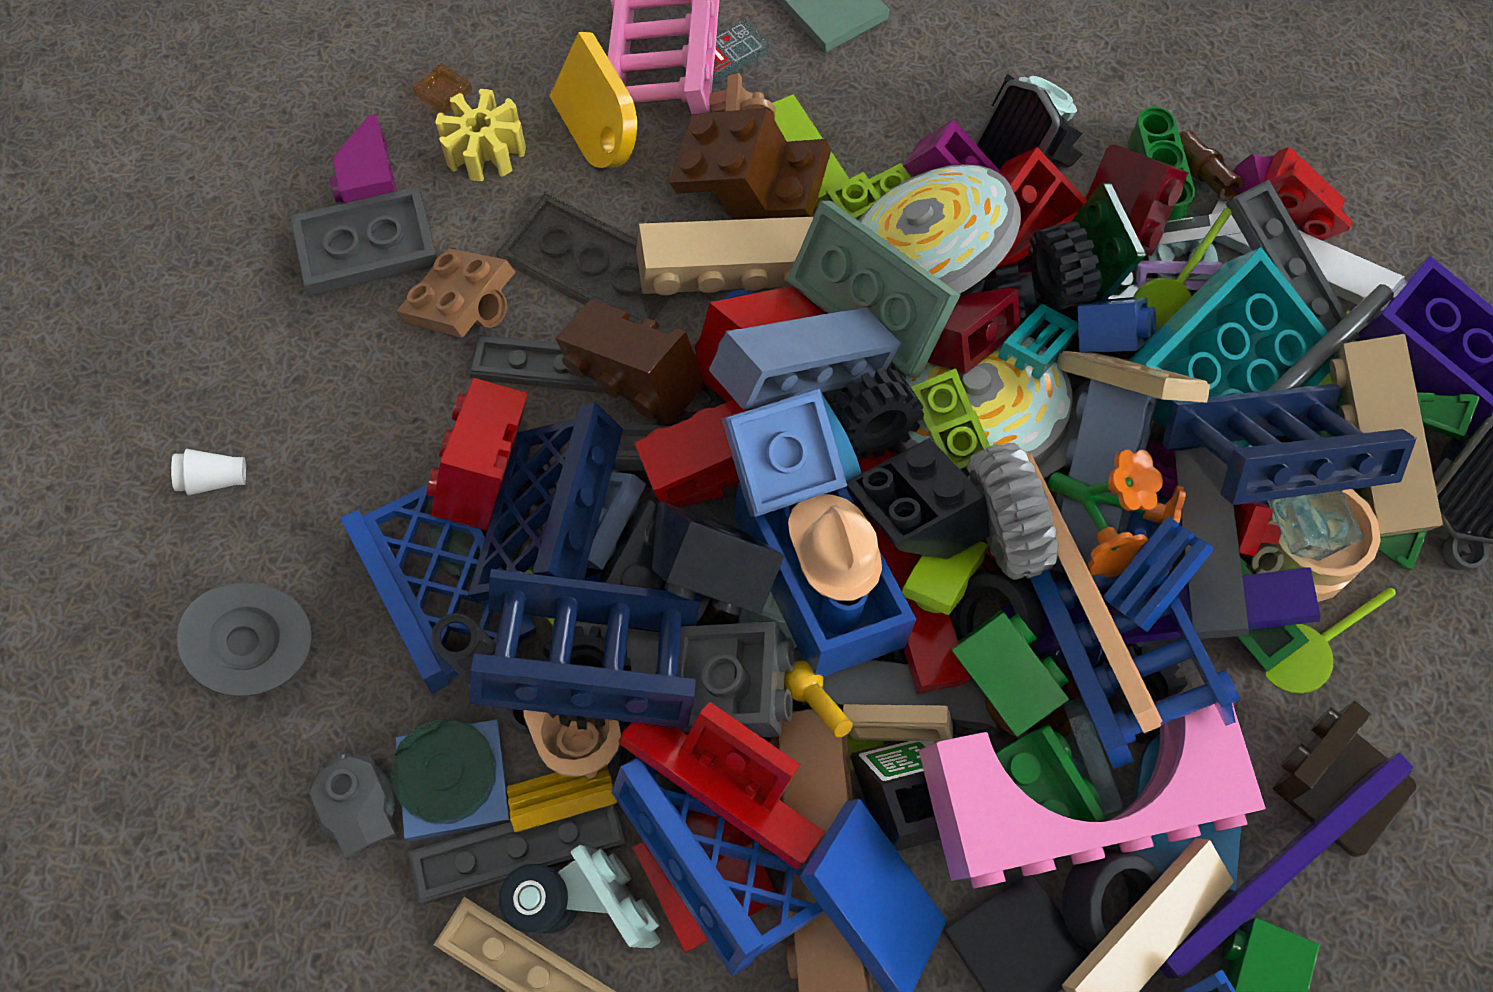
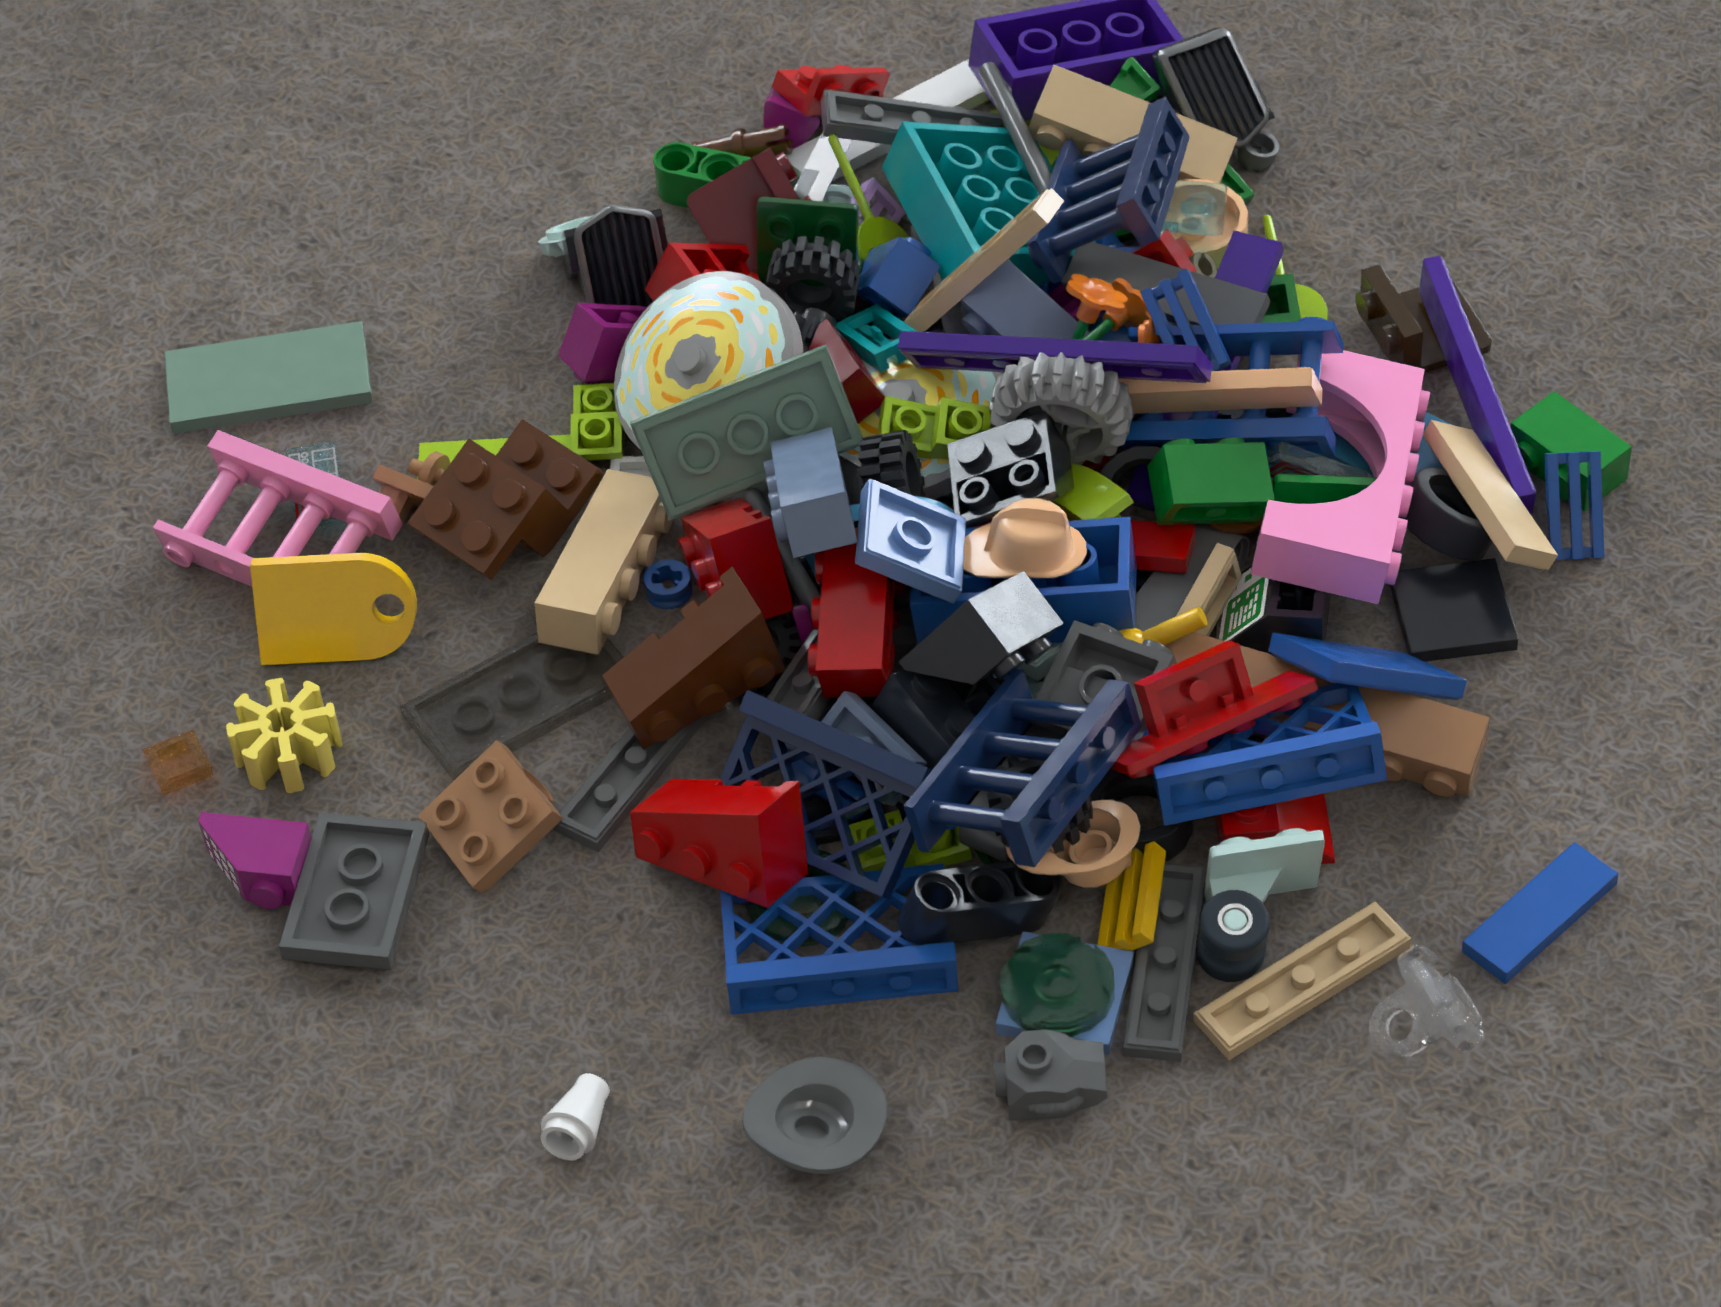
camera: 60 degrees left, 15 degrees down
(1058, 487) = (995, 352): none -> dark purple tile

